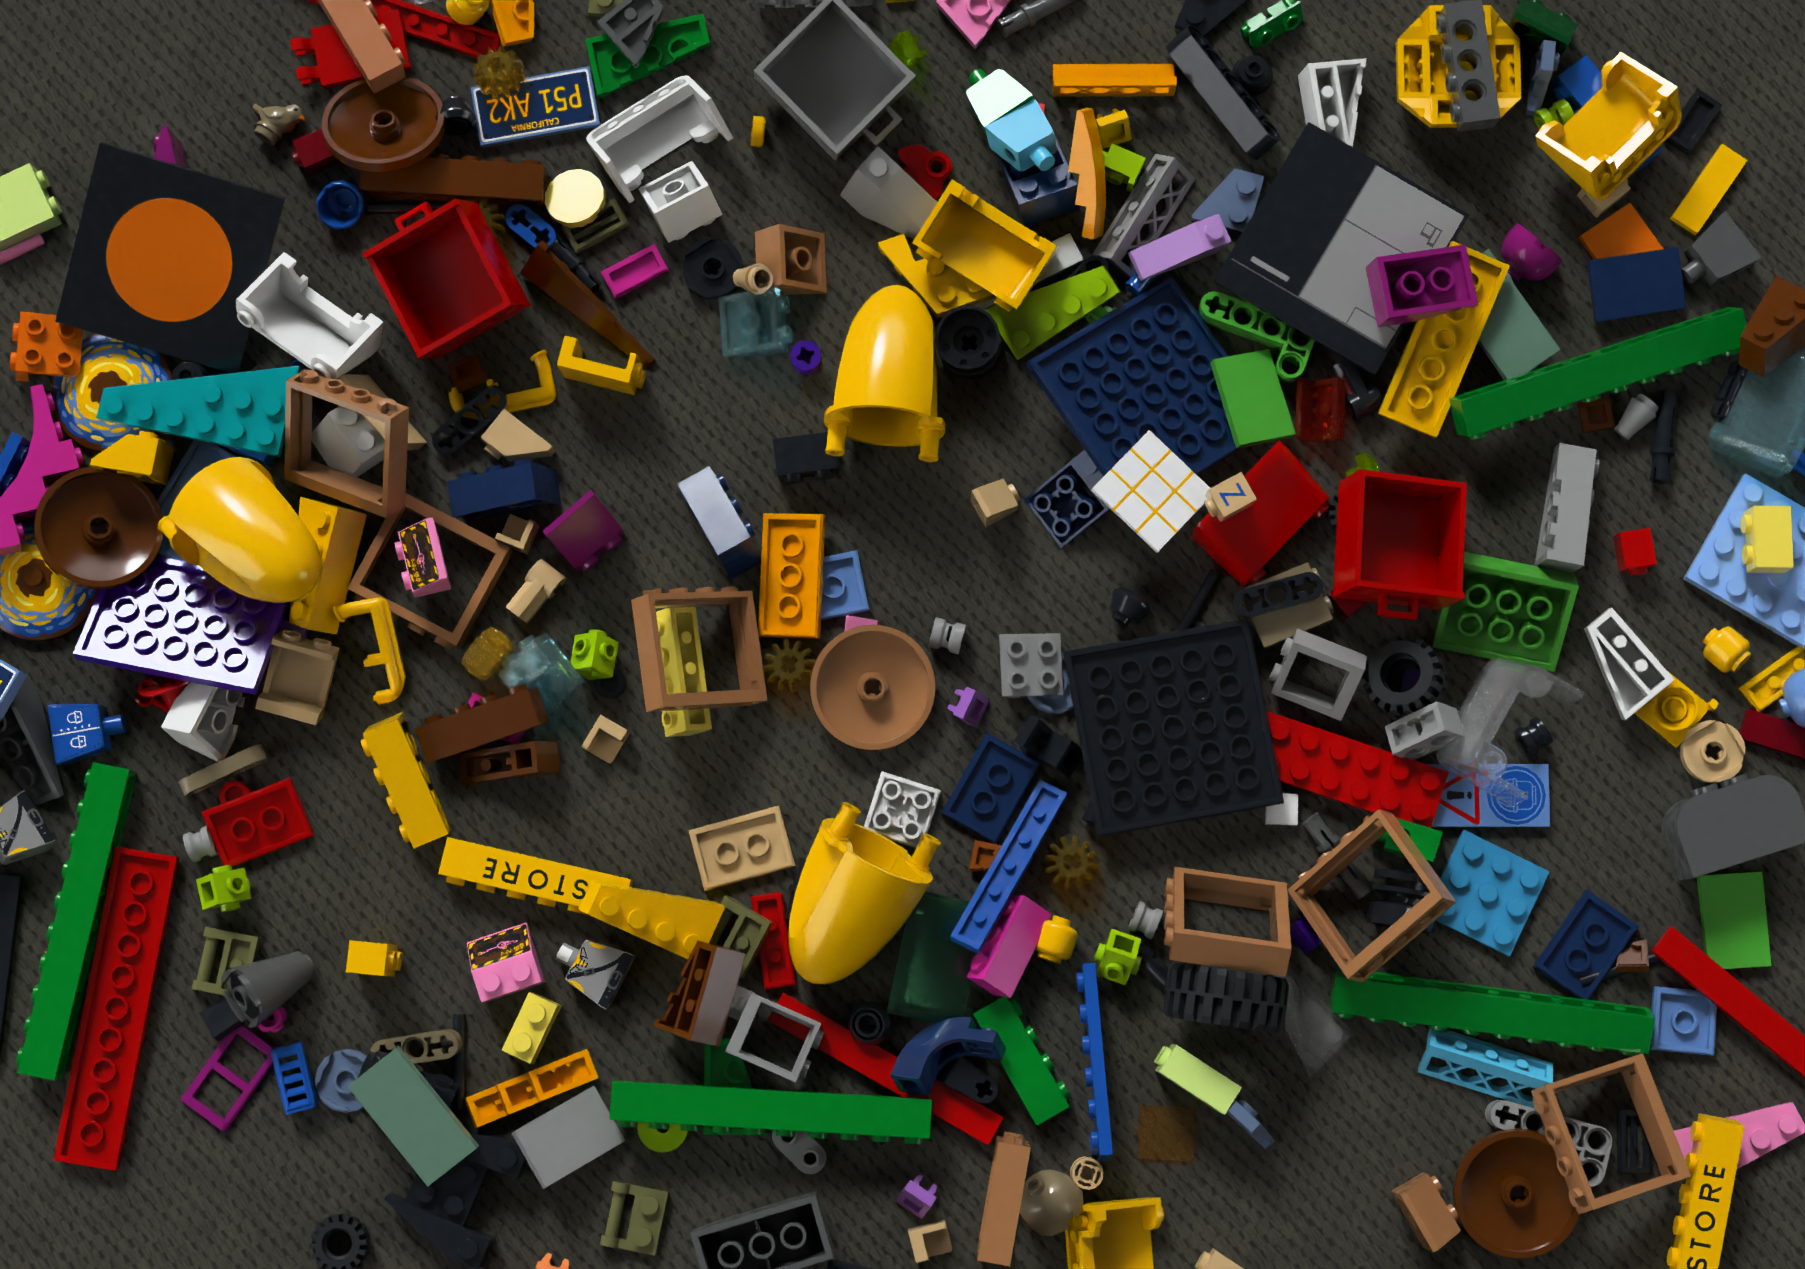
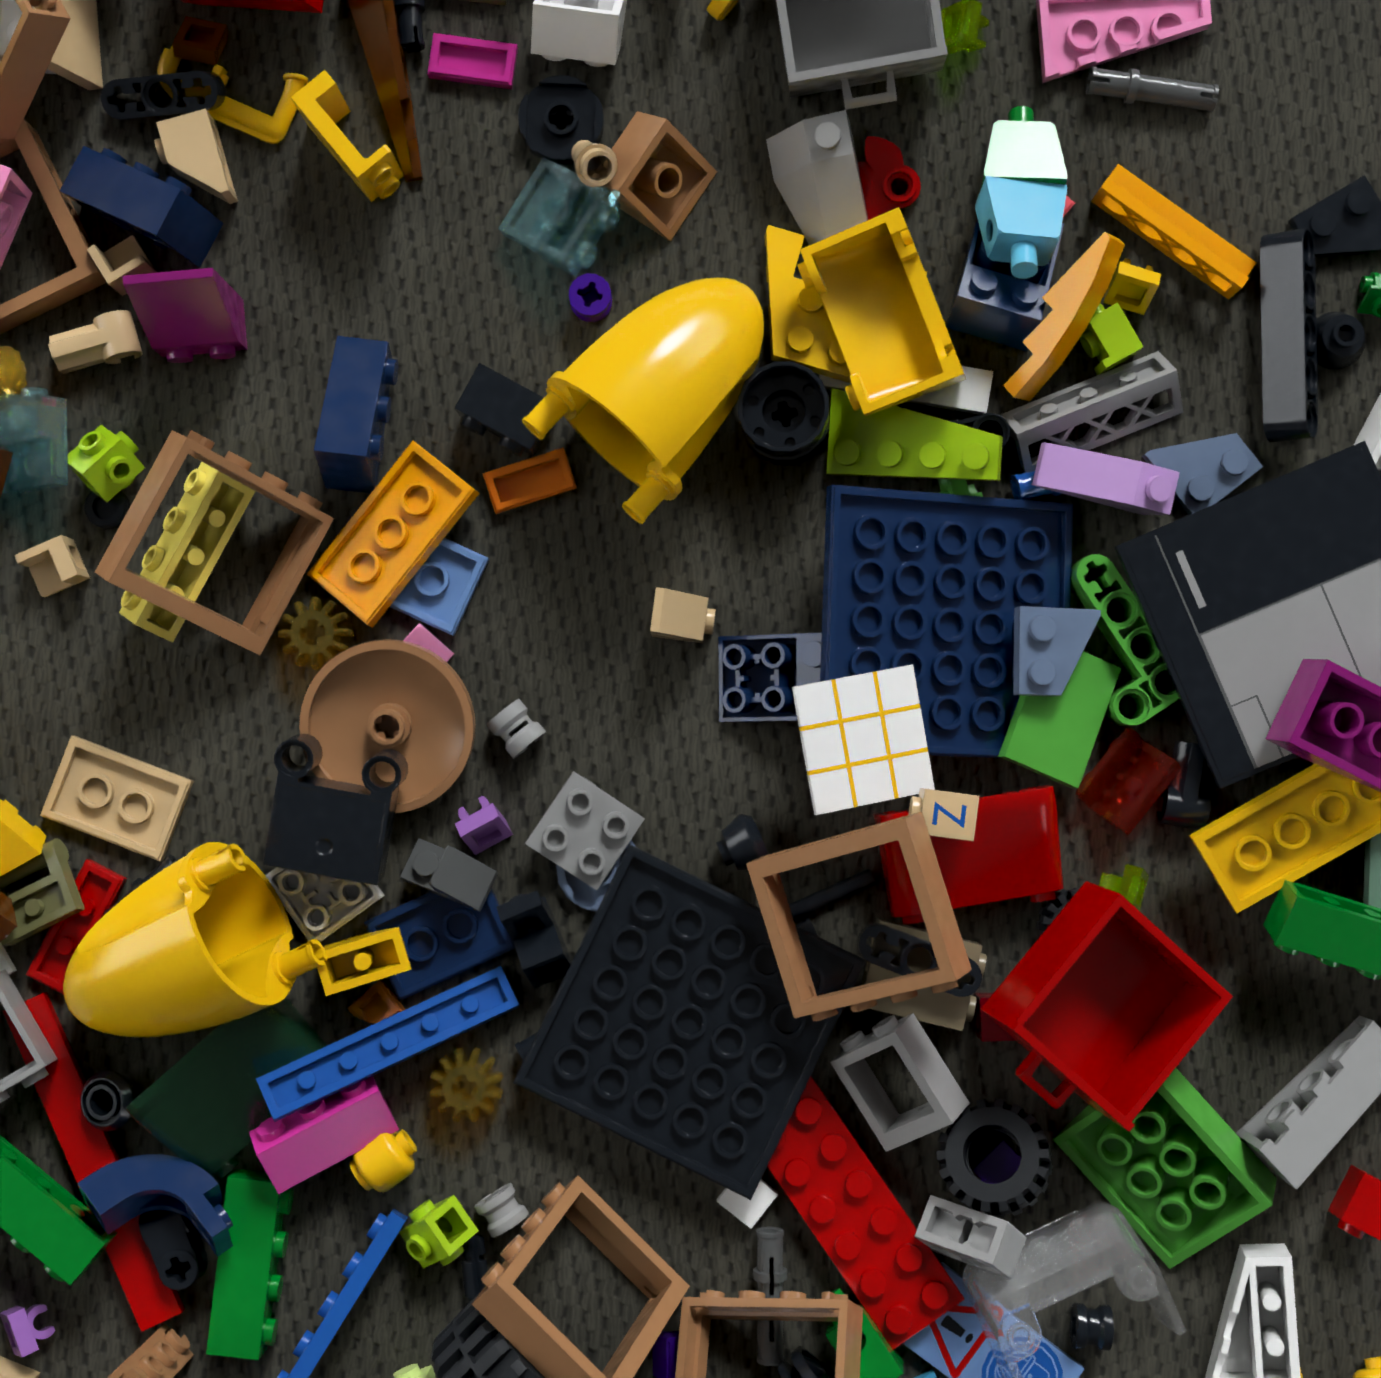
camera: 35 degrees right, 5 degrees up
(848, 488) = (529, 480): none -> orange tile
(883, 763) = (331, 823): none -> black piece
(960, 829) = (363, 960): none -> yellow slope
(970, 747) = (449, 874): none -> dark grey slope
(1218, 365) = (1048, 647): none -> sand blue wing
(1254, 543) = (930, 894): none -> medium nougat window

